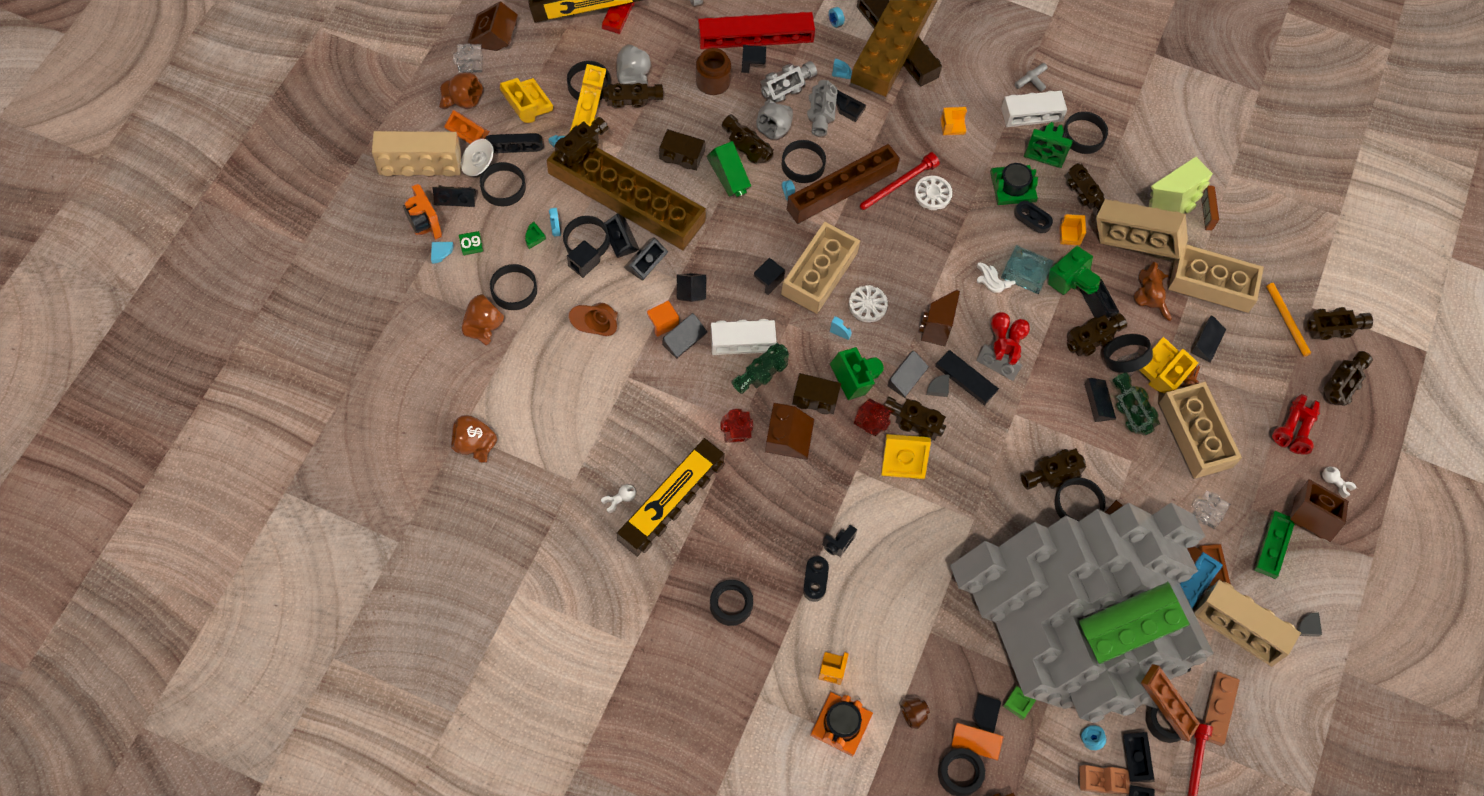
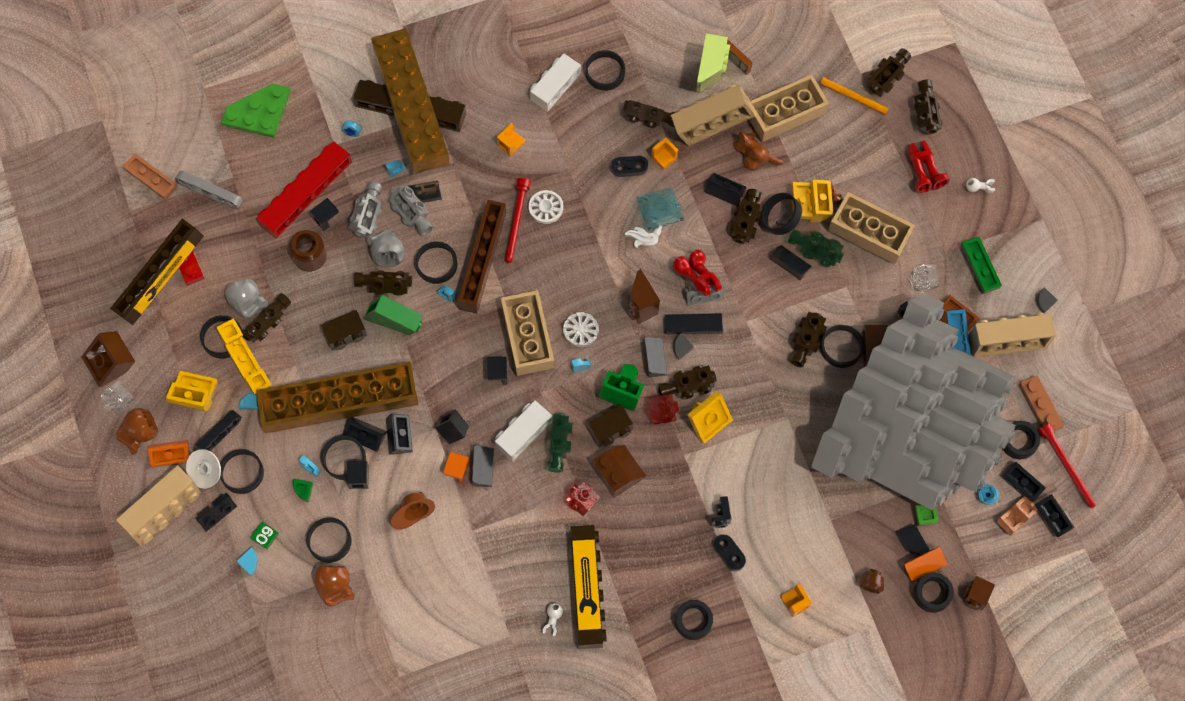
camera: 40 degrees left, 5 degrees up
(421, 213) = (211, 547): orange piece -> none
(472, 437) = (413, 672): dark orange piece -> none
(579, 142) = (273, 393): dark brown brick -> none
(842, 722) = (835, 631): piece -> none
(1013, 182) = (593, 151): piece -> none
(1032, 76) = (530, 57): light grey piece -> none
(1049, 145) = (593, 103): green piece -> none
(1074, 272) = (694, 185): green brick -> none
(1134, 622) = (960, 403): bright green brick -> none
(1170, 702) = (1018, 432): dark orange tile -> none
(1209, 339) = (819, 156): black slope -> none
(1319, 510) = (989, 218): reddish brown brick -> none

